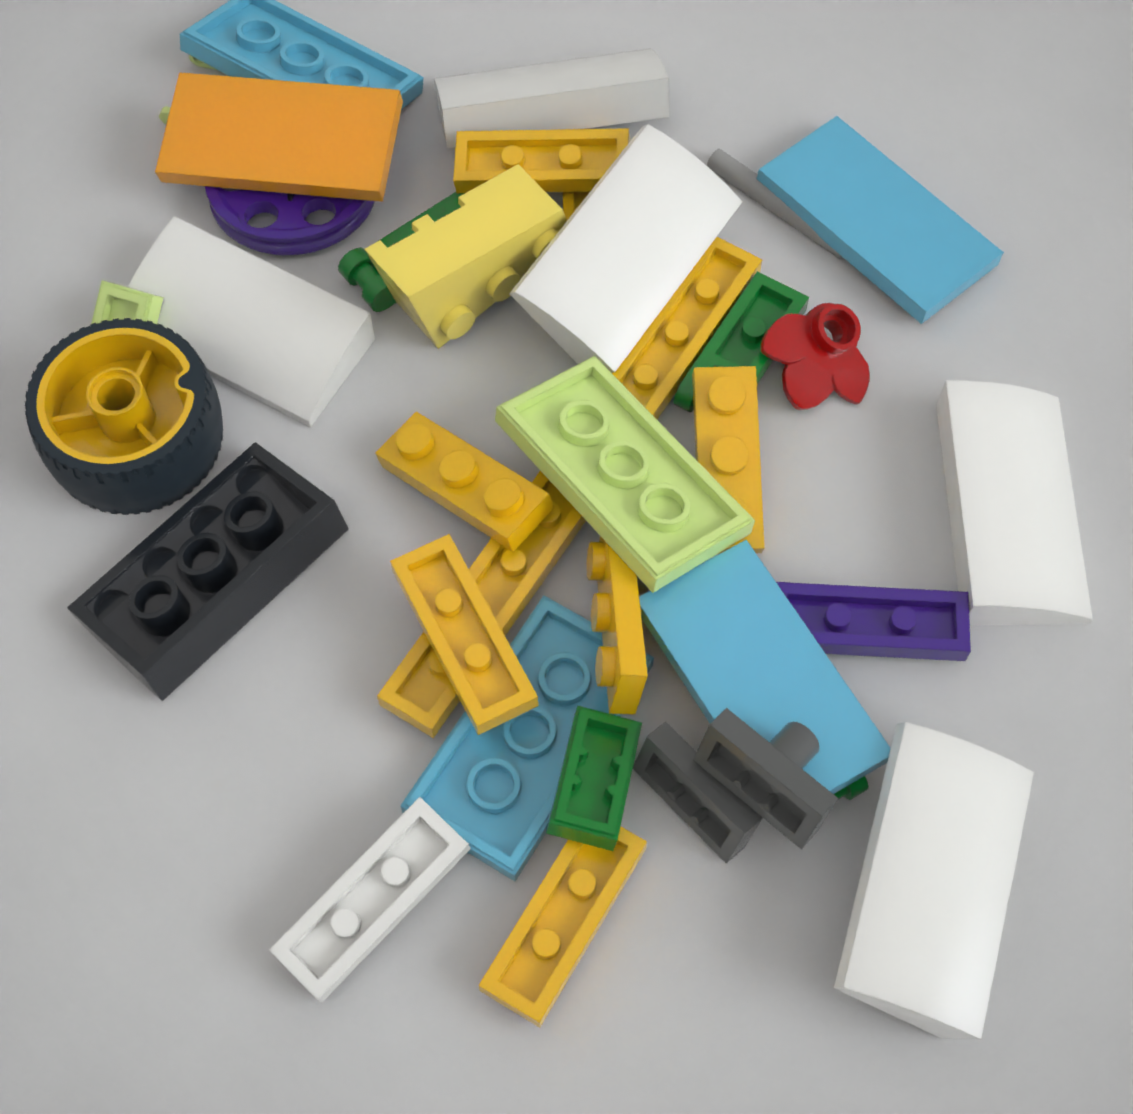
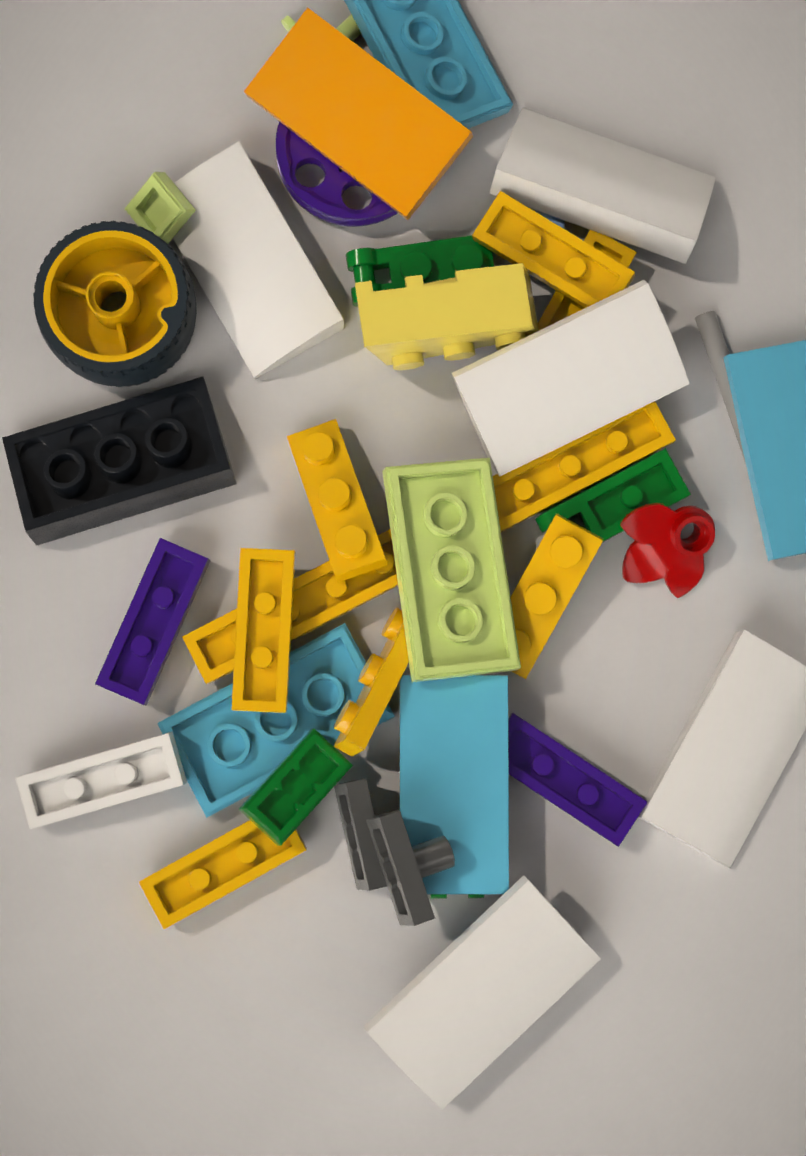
camera: 25 degrees right, 20 degrees up
(335, 705) = (152, 622): none -> dark purple plate

